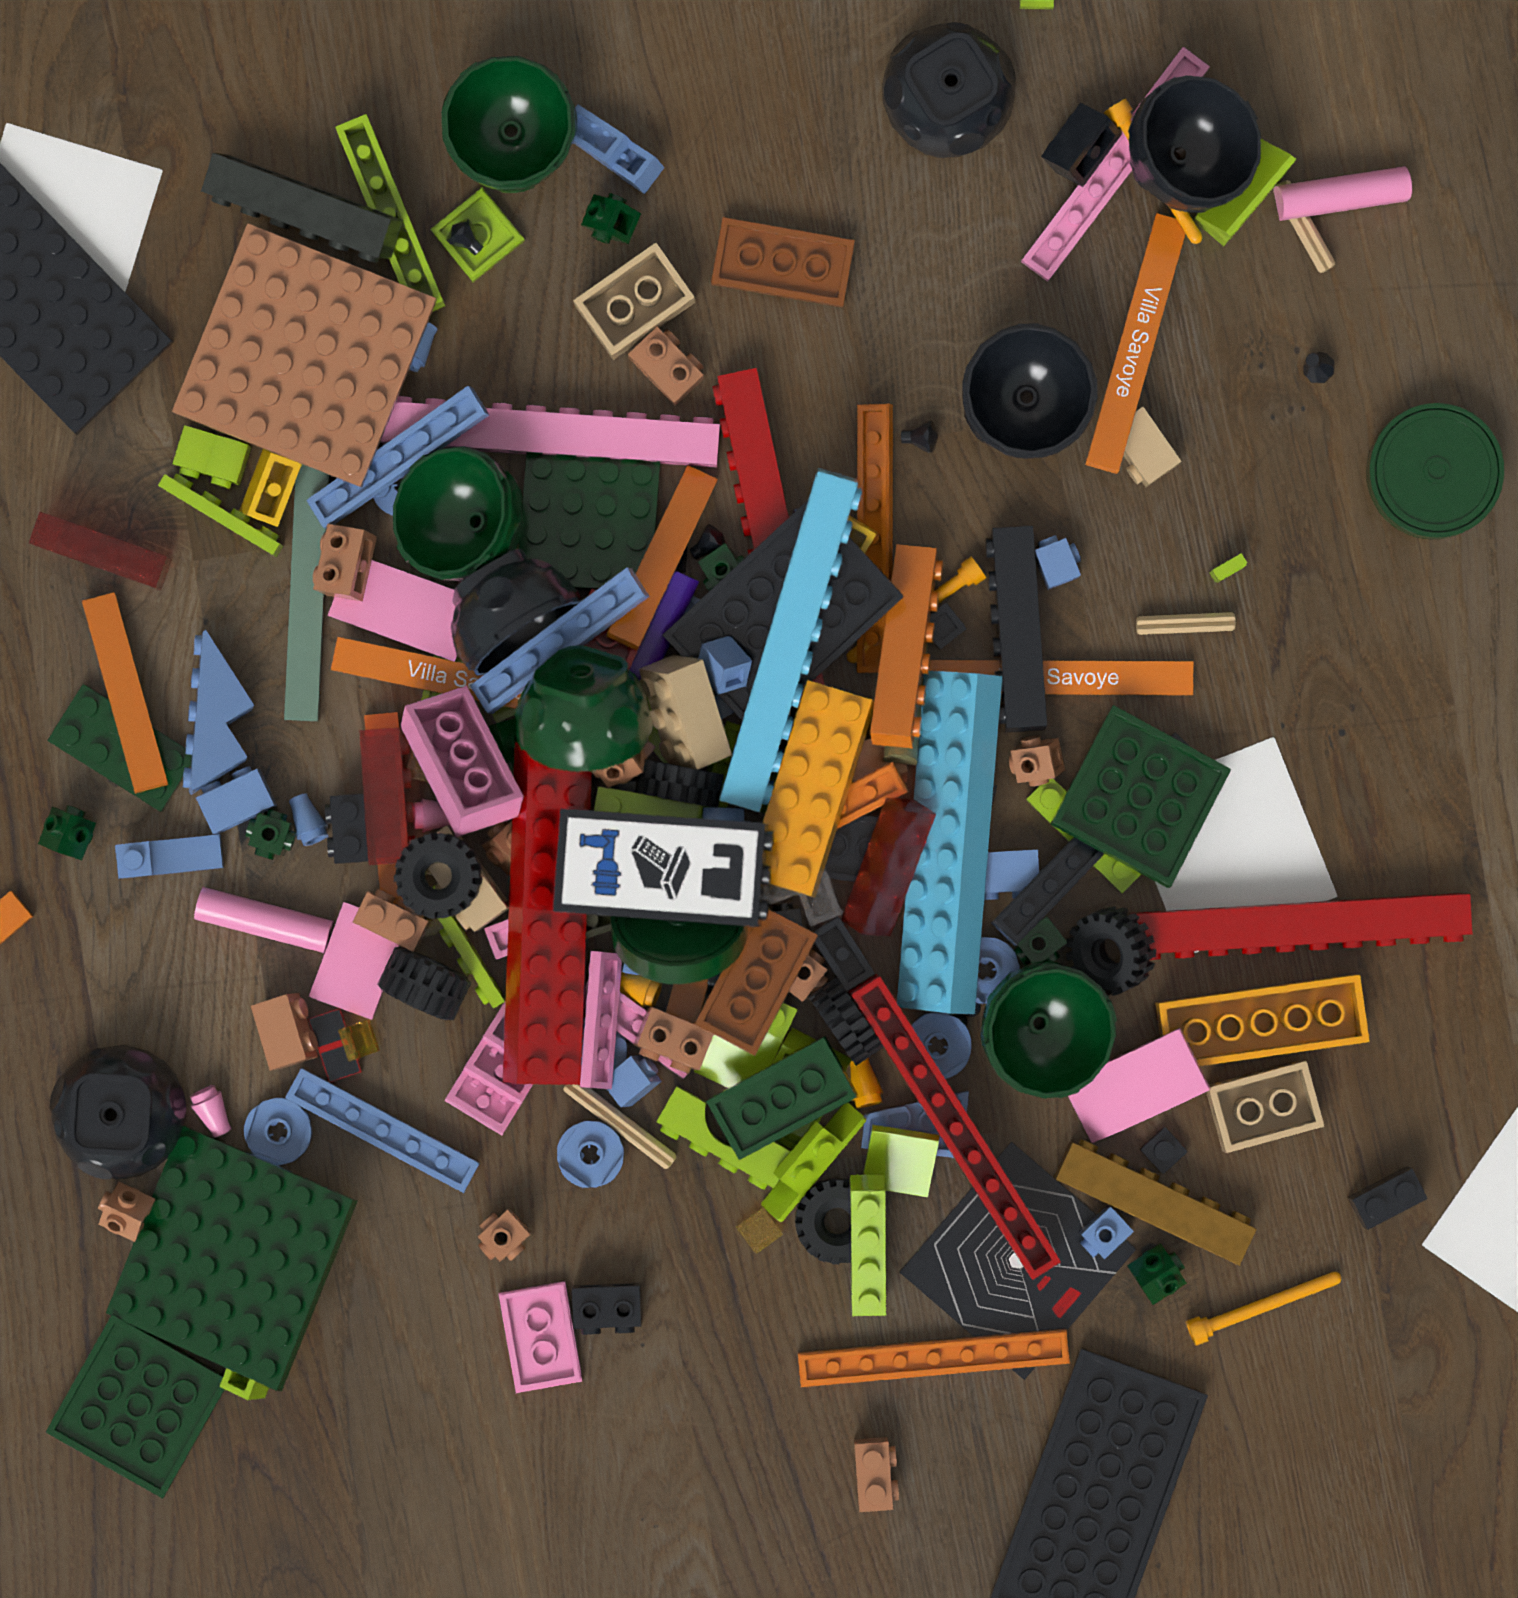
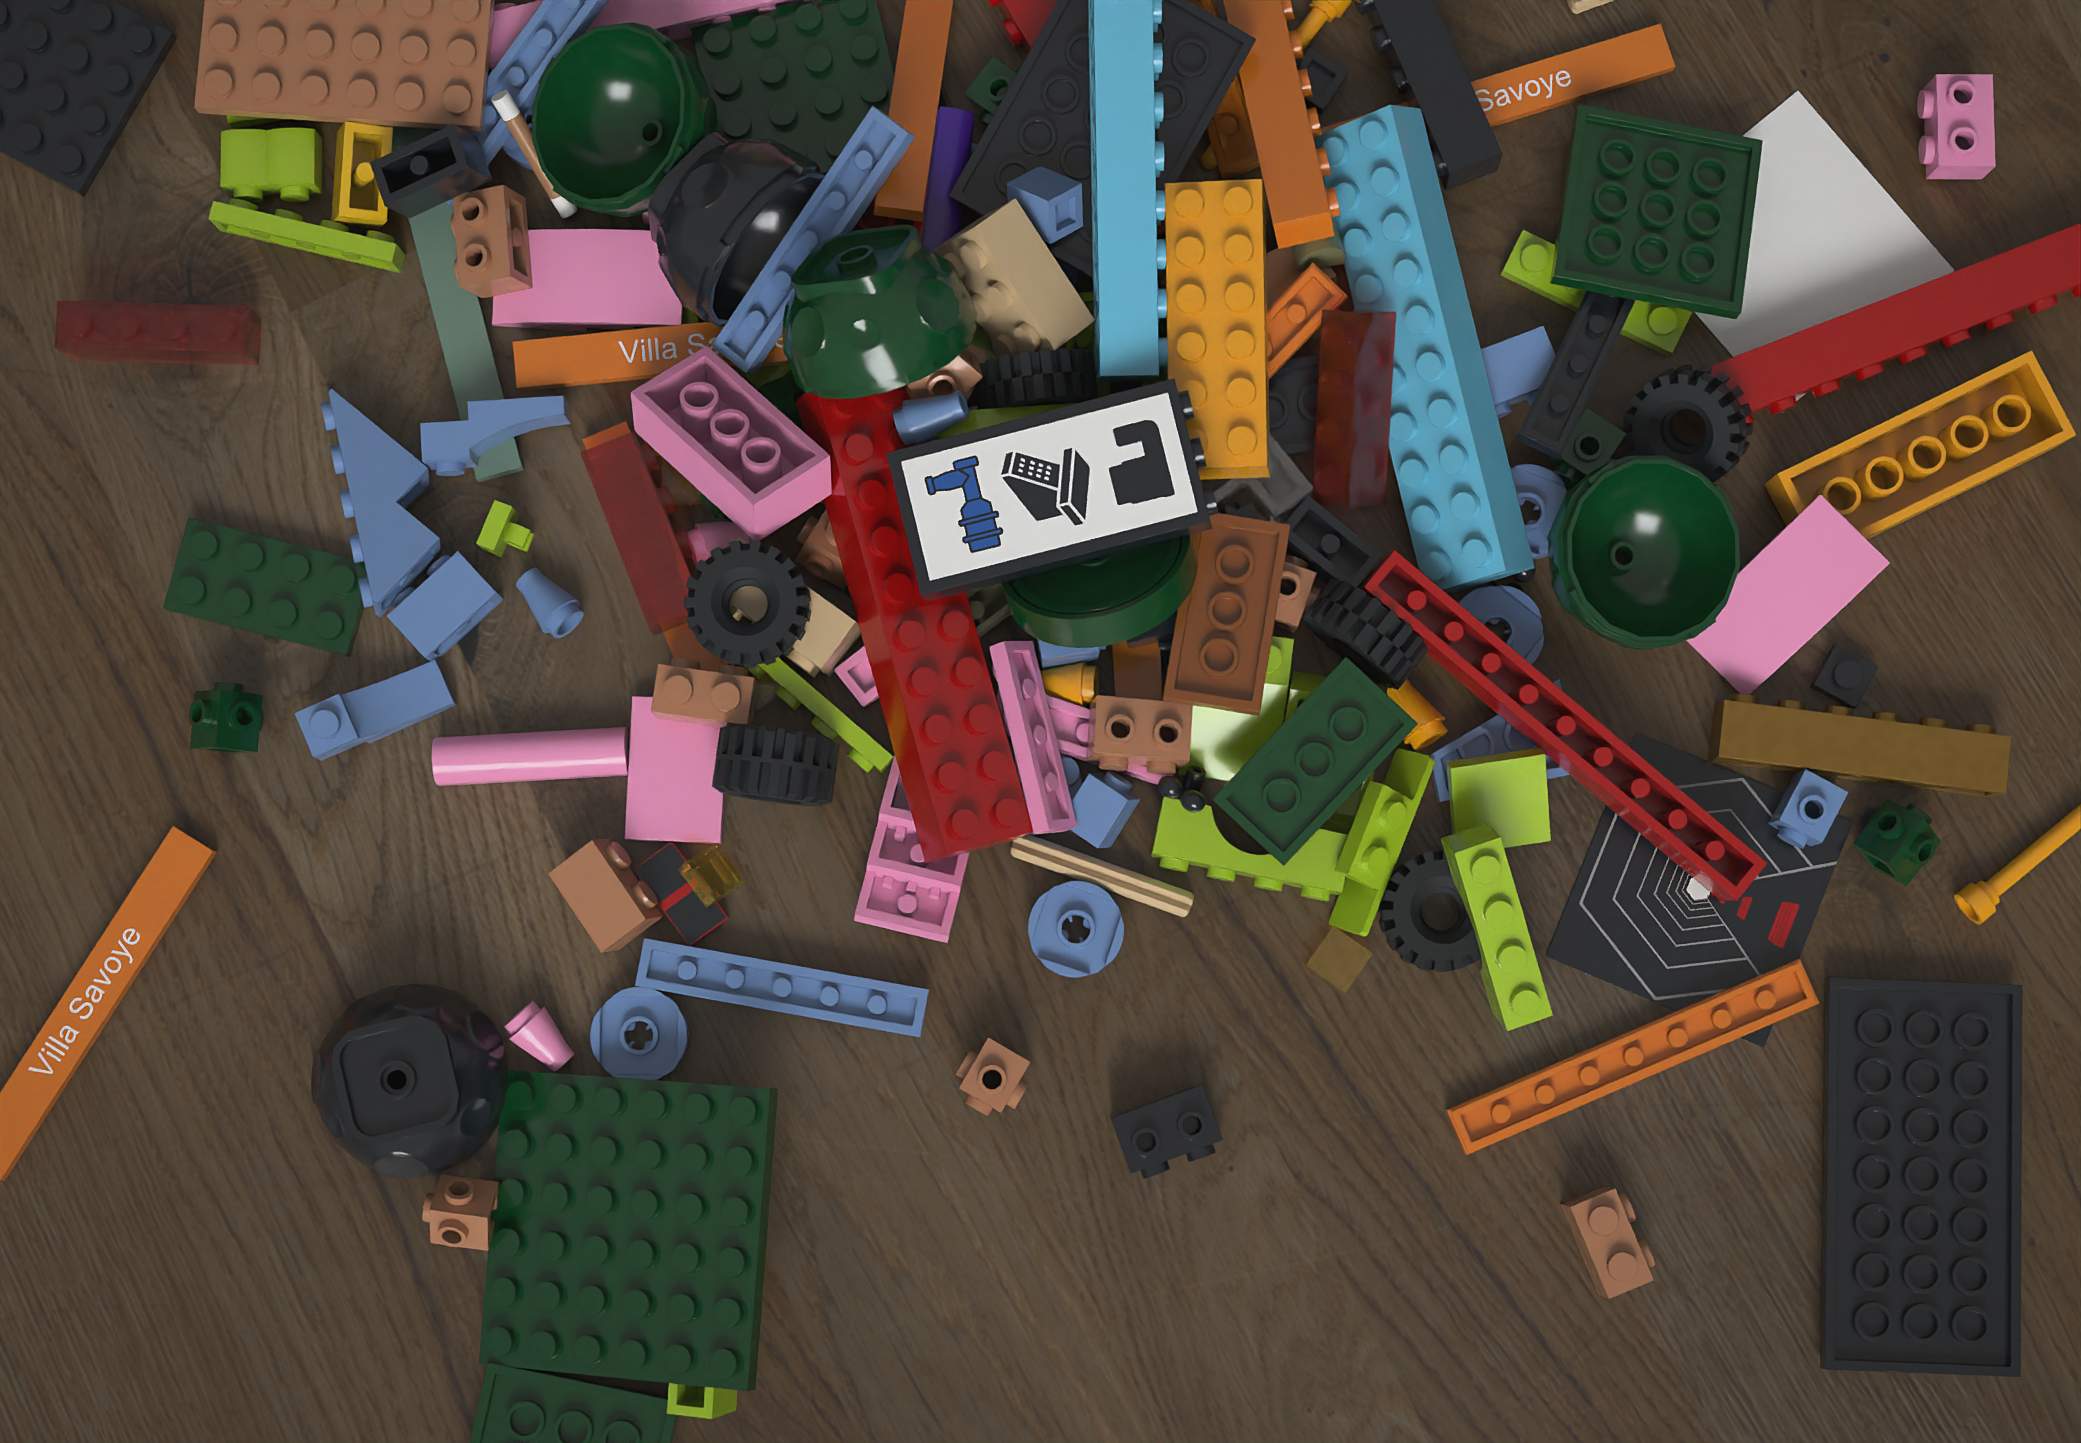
camera: 20 degrees left, 5 degrees down
(124, 693) = (248, 510): orange tile -> none
(278, 695) = (458, 444): none -> medium blue slope
(283, 839) = (519, 644): dark green brick -> none
(291, 761) = (502, 529): none -> lime tile
(318, 507) = (431, 171): none -> black brick
(348, 829) = (609, 594): black brick -> none
(387, 497) = (523, 136): none -> bar
(540, 1336) = (1088, 1202): bright pink tile -> none
(597, 789) = (928, 417): none -> medium blue cone
(693, 1095) = (1190, 797): none -> black piece
(709, 541) = (969, 66): black rock -> none
(1036, 760) = (1513, 202): nougat brick -> none
(1264, 1106) = (1963, 570): tan brick -> none
(1374, 803) = (1957, 126): none -> bright pink brick

